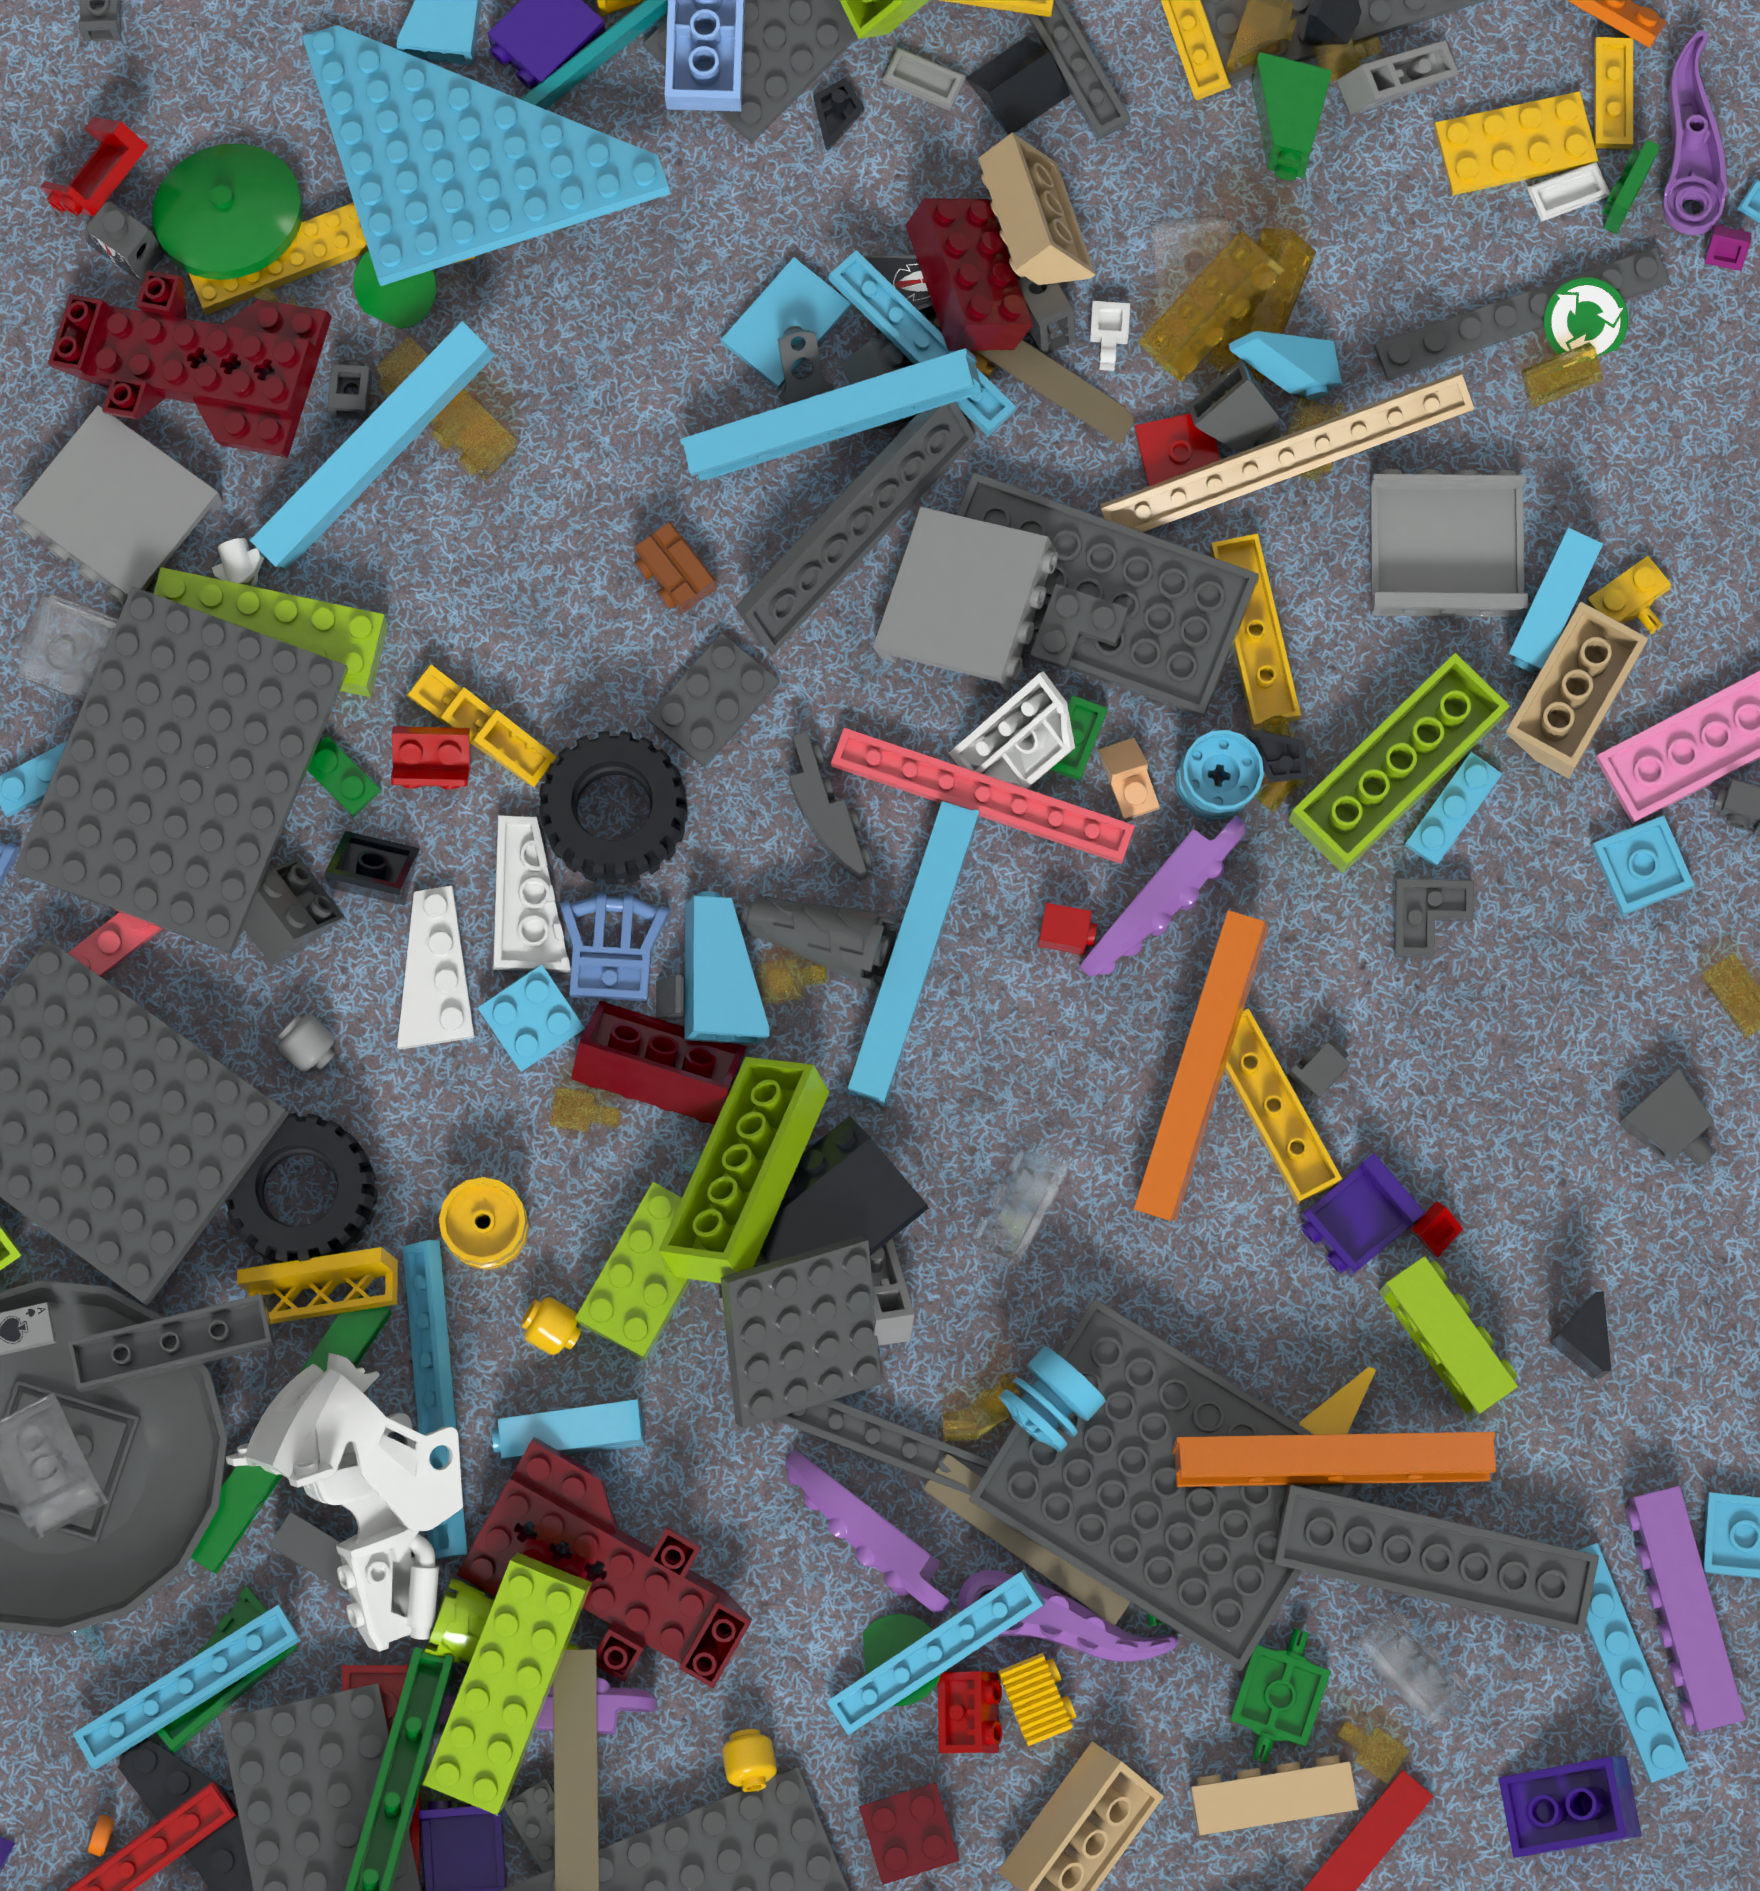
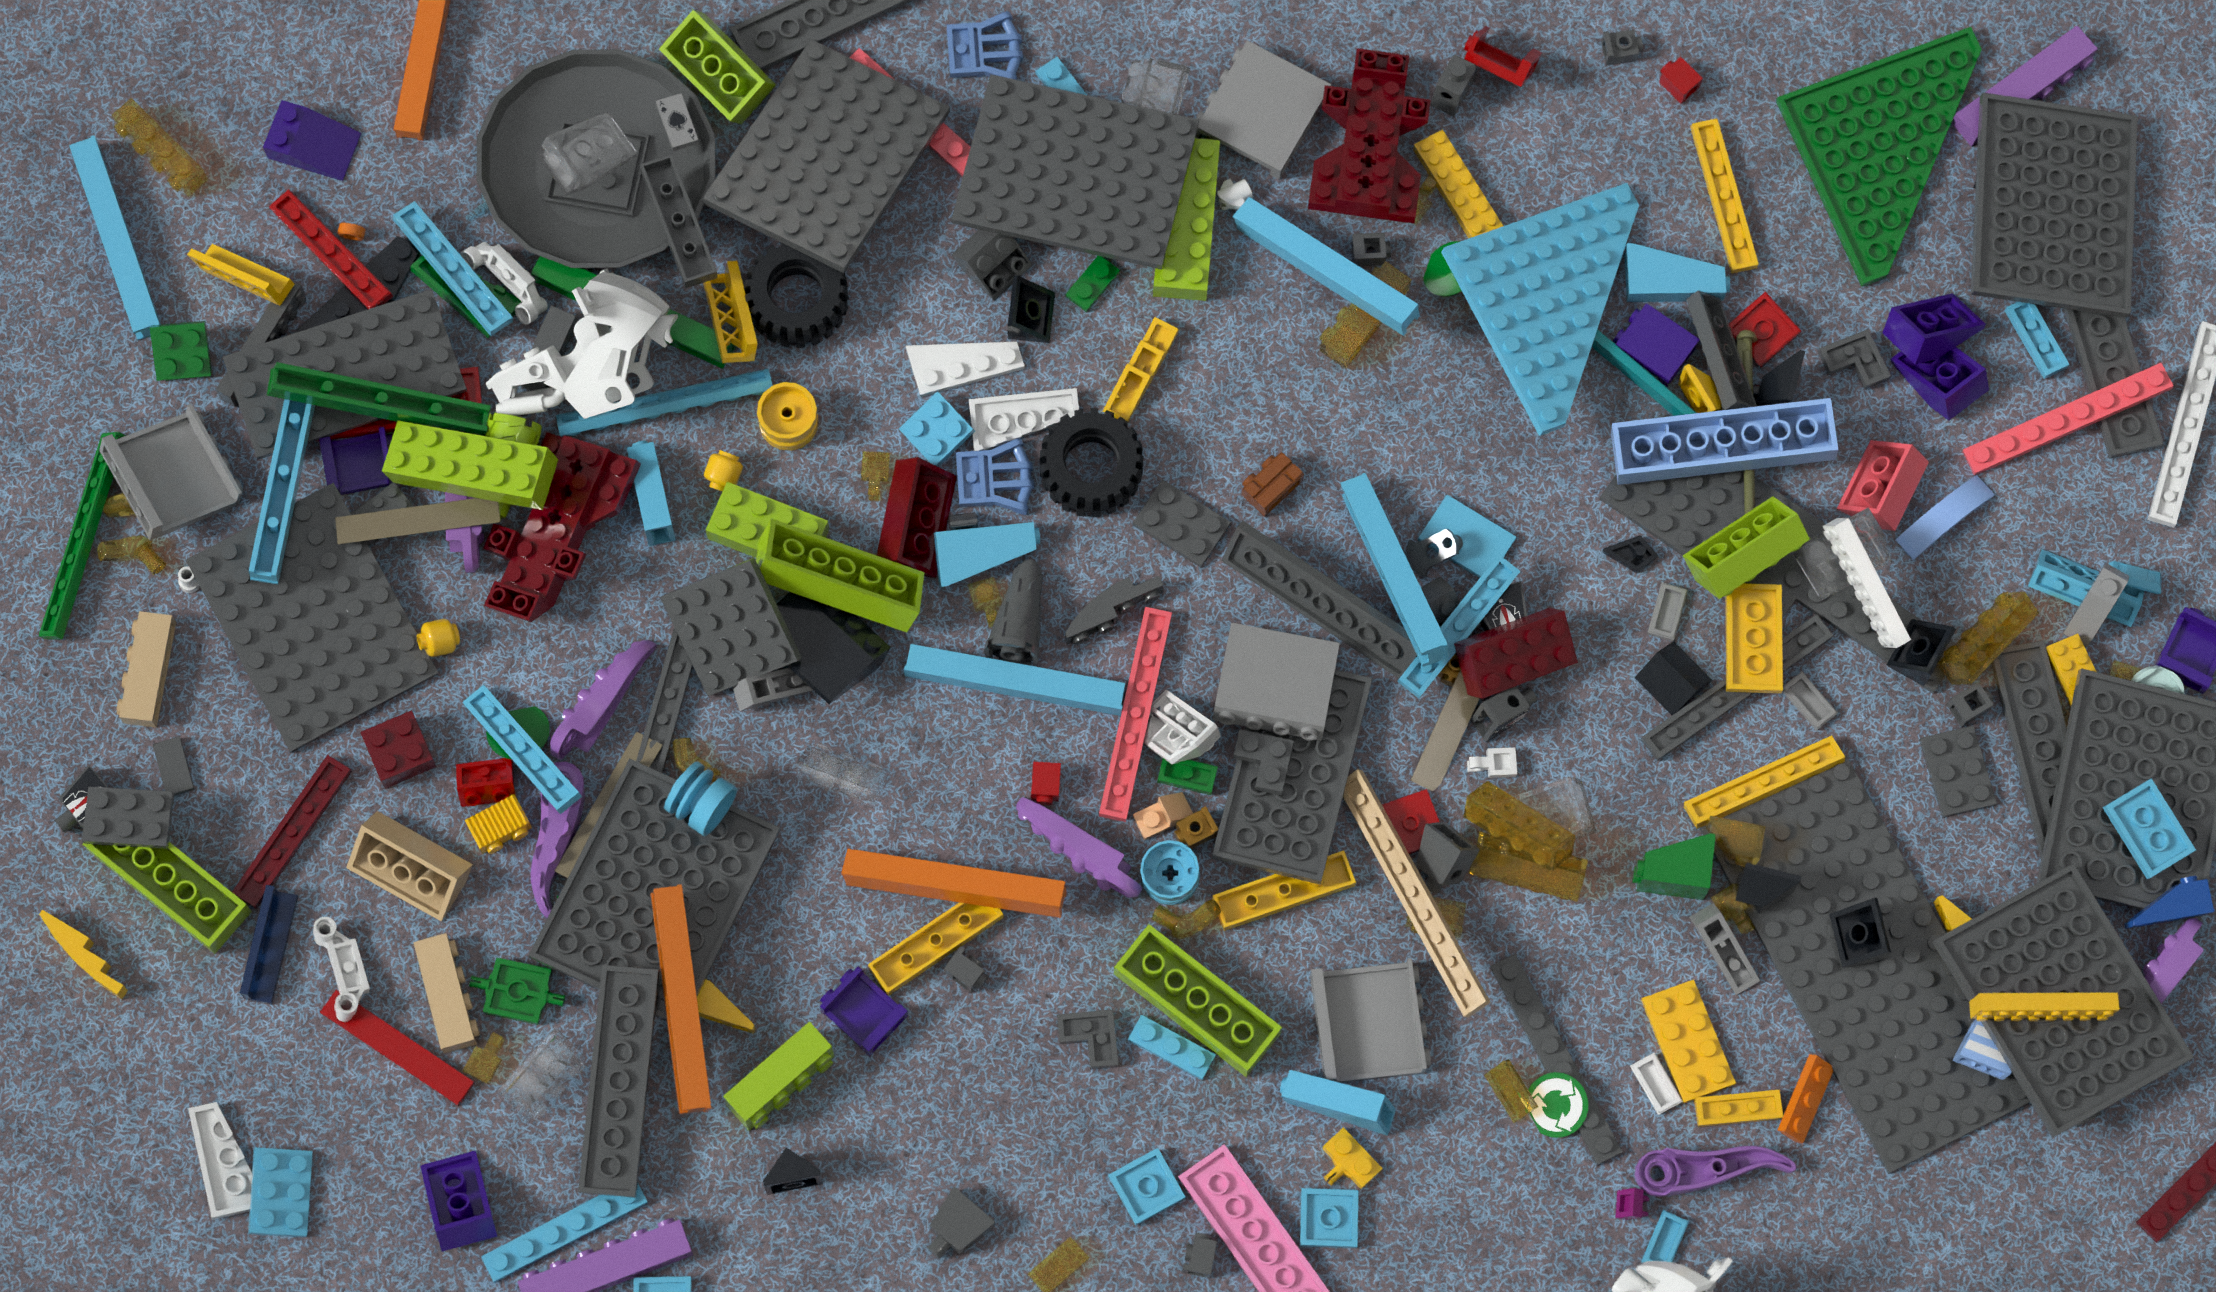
camera: 80 degrees right, 5 degrees down
(206, 1603) = (511, 275): none -> white plate
(227, 211) = (1487, 150): green dish -> none
(306, 1043) = (900, 285): light grey head -> none
(431, 757) = (1112, 339): red bracket -> none
(1034, 213) = (1569, 695): tan slope -> none
(1156, 718) = (1207, 831): none -> pearl gold brick
(1281, 755) = (1188, 911): black piece -> none
(1292, 362) = (1485, 890): medium azure slope -> none
(1437, 1229) = (860, 1065): red plate -> none
(1575, 689) = (1269, 1121): tan slope -> none
(1629, 185) = (1654, 1120): green plate -> none
(1708, 633) = (1329, 1218): none -> medium azure plate

